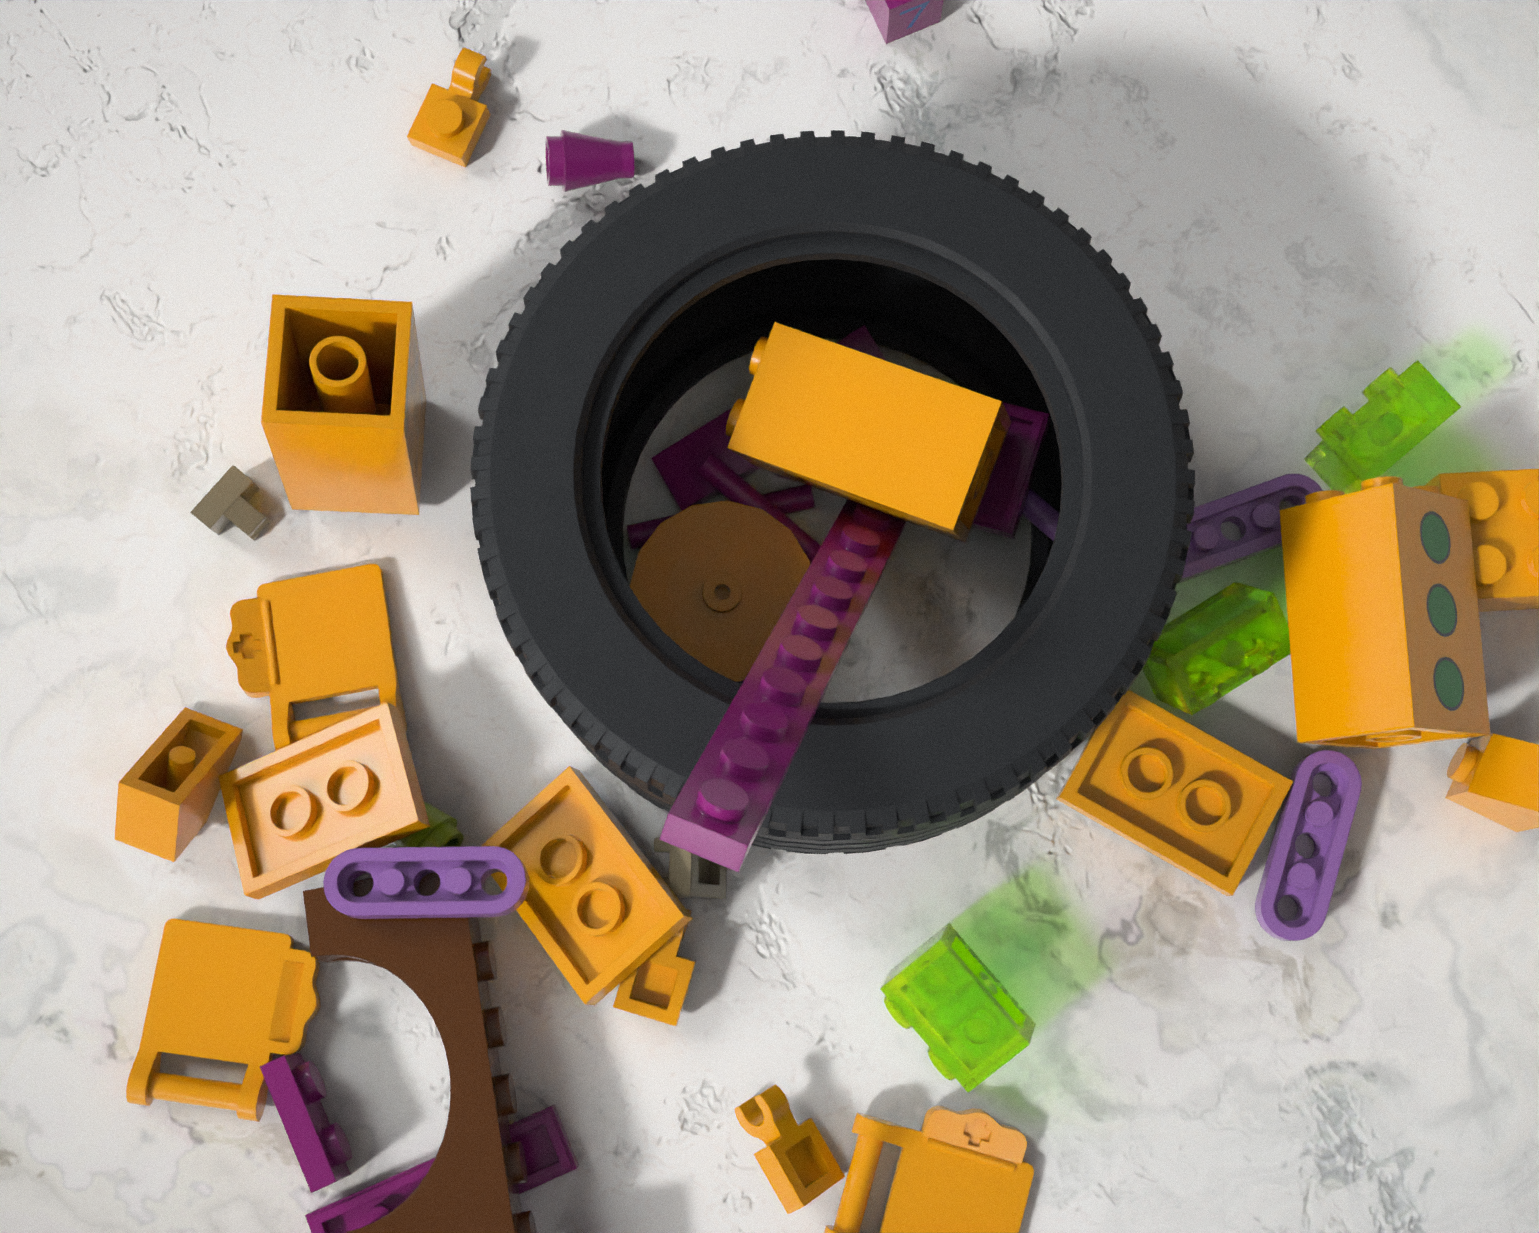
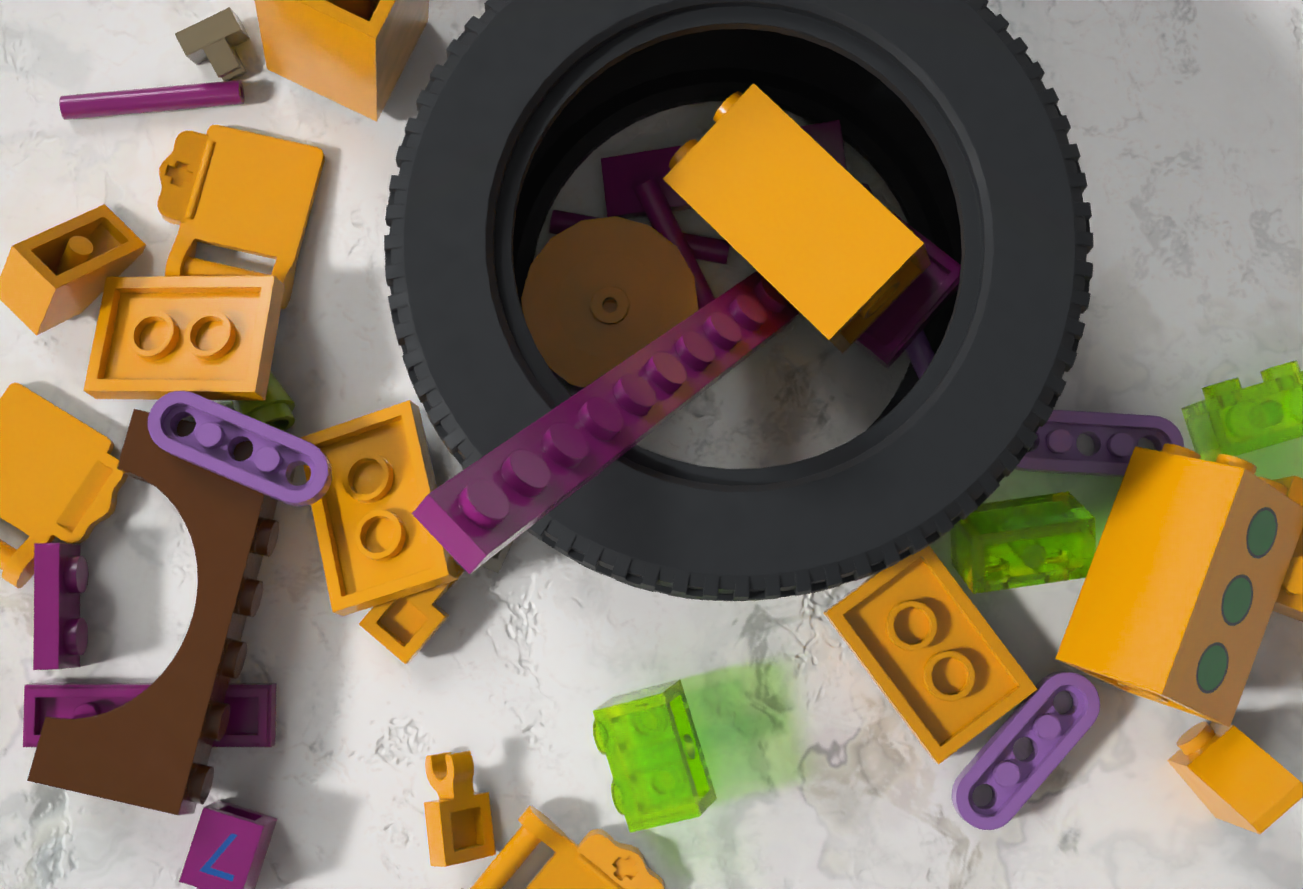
camera: 20 degrees right, 5 degrees up
(189, 587) = (152, 99): none -> magenta piece

